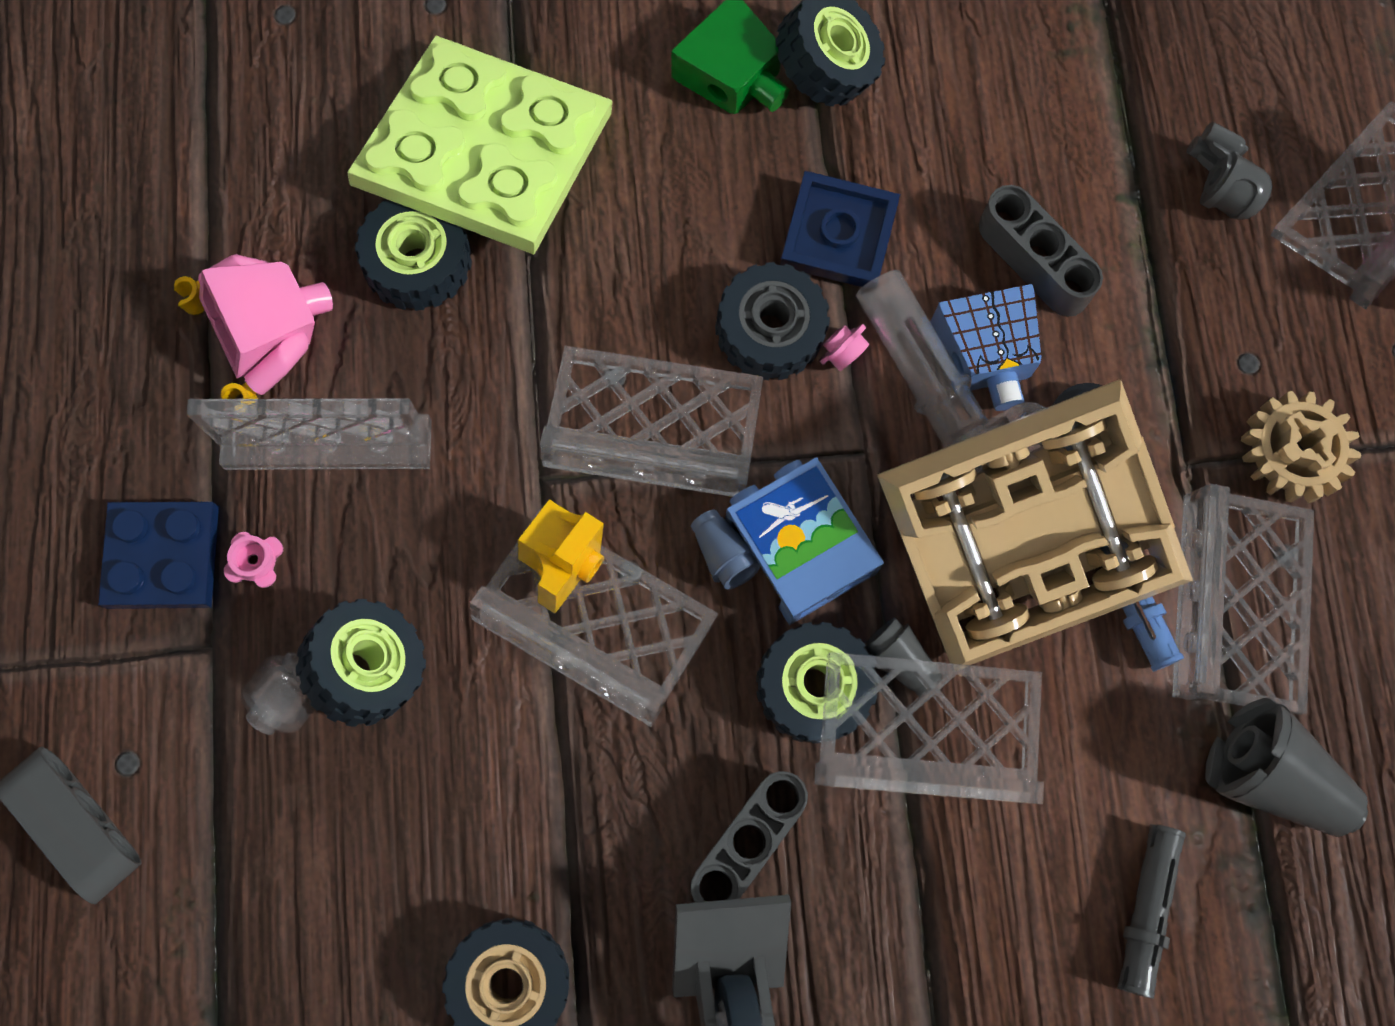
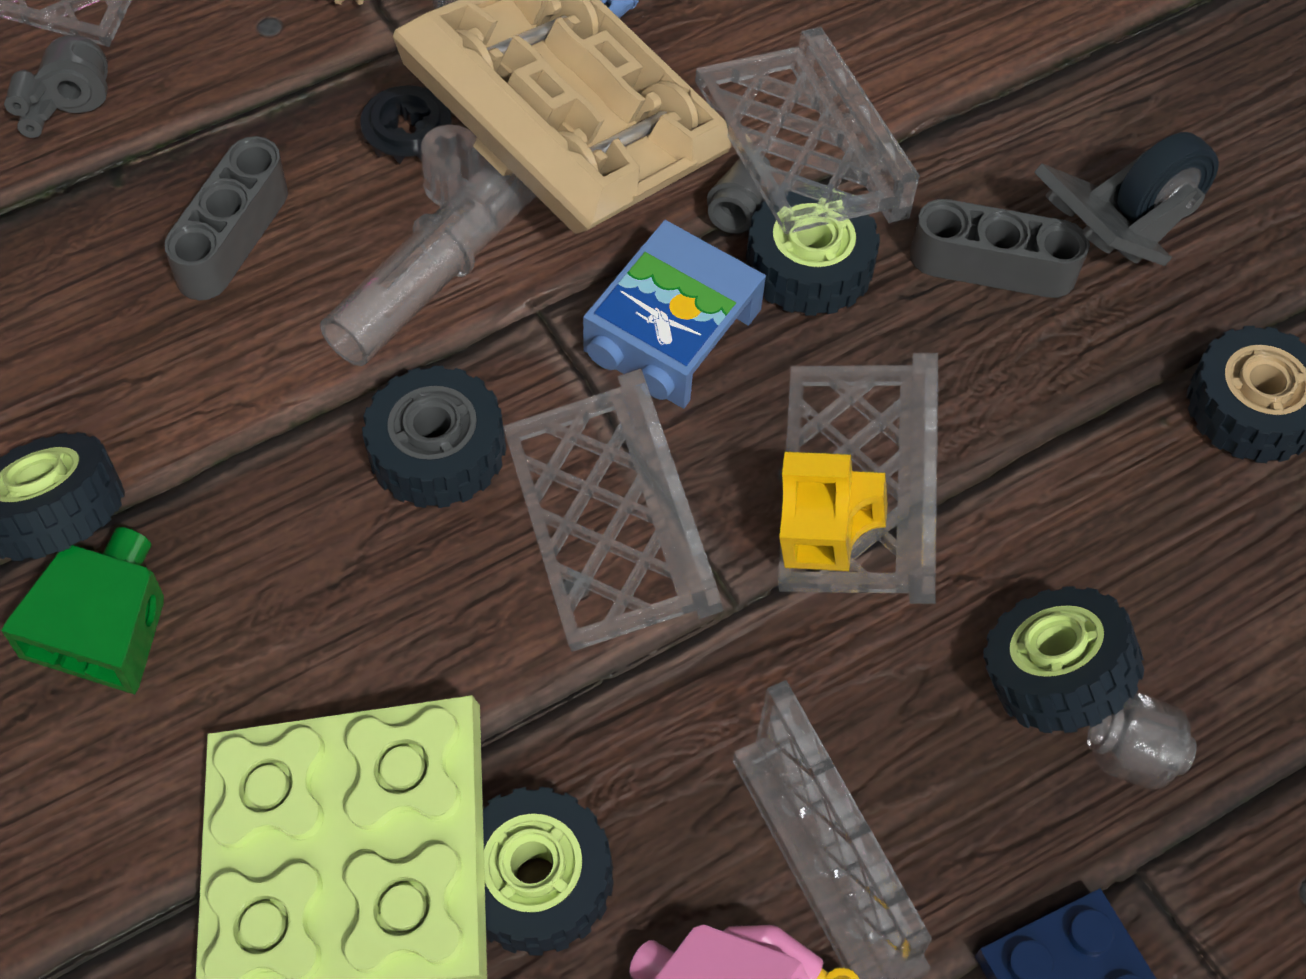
camera: 115 degrees left, 15 degrees down
(242, 548) = (1025, 849): bright pink plate -> none
(724, 550) = (723, 381): sand blue cone -> none
(840, 229) = (284, 415): dark blue plate -> none
(844, 346) = (428, 348): bright pink plate -> none
(993, 340) = (355, 220): medium blue torso -> none

